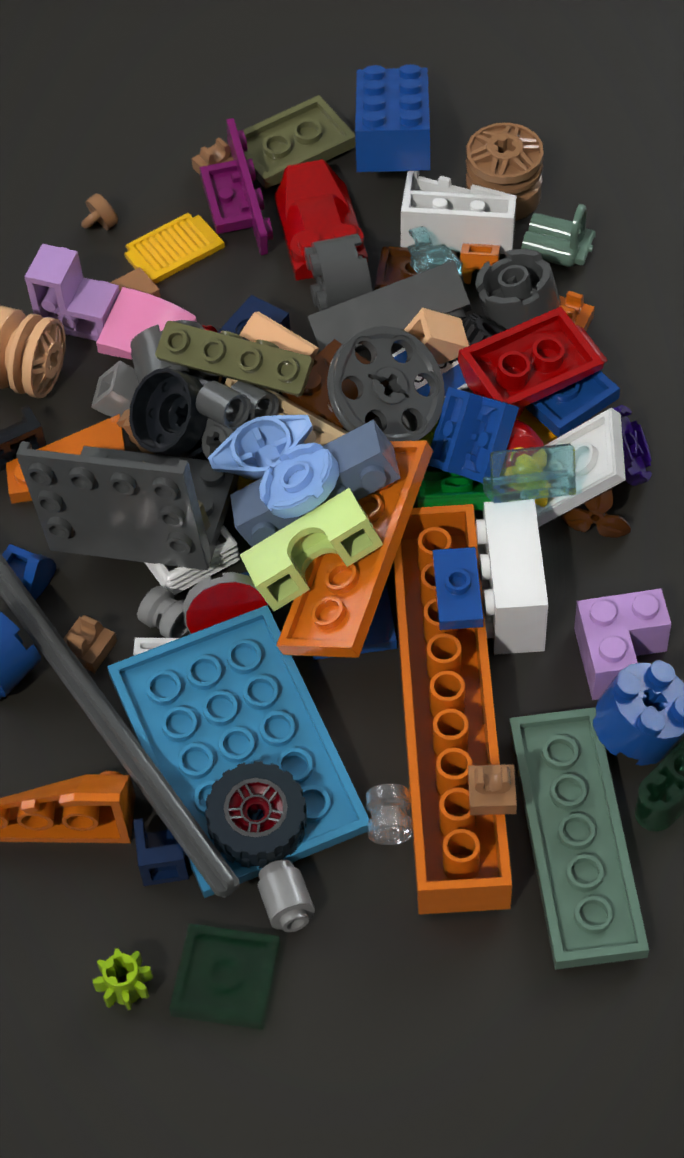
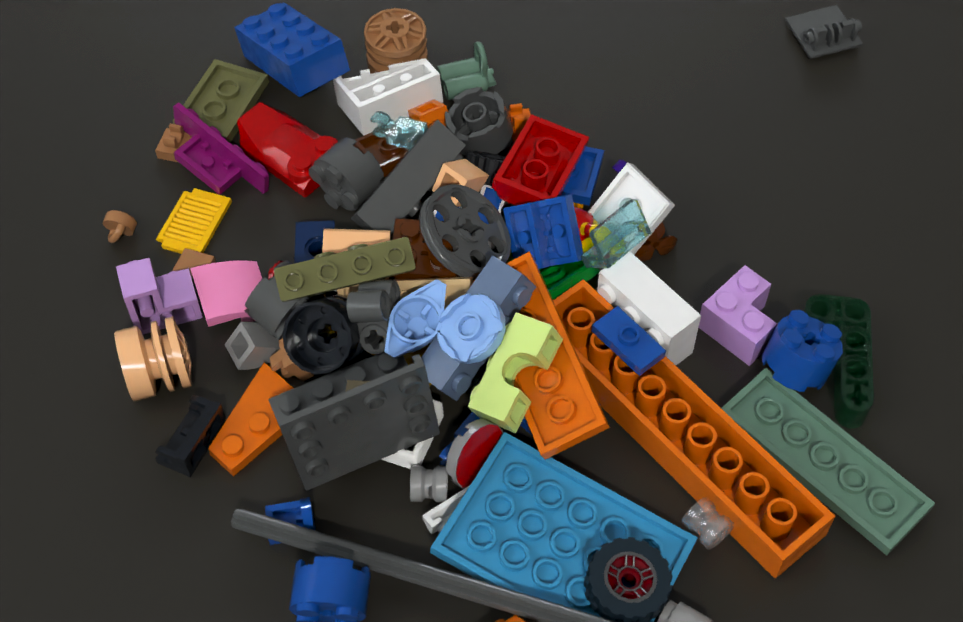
camera: 40 degrees left, 0 degrees up
(90, 642) = (387, 537): medium nougat tile -> none
(492, 789) = (770, 460): medium nougat tile -> none

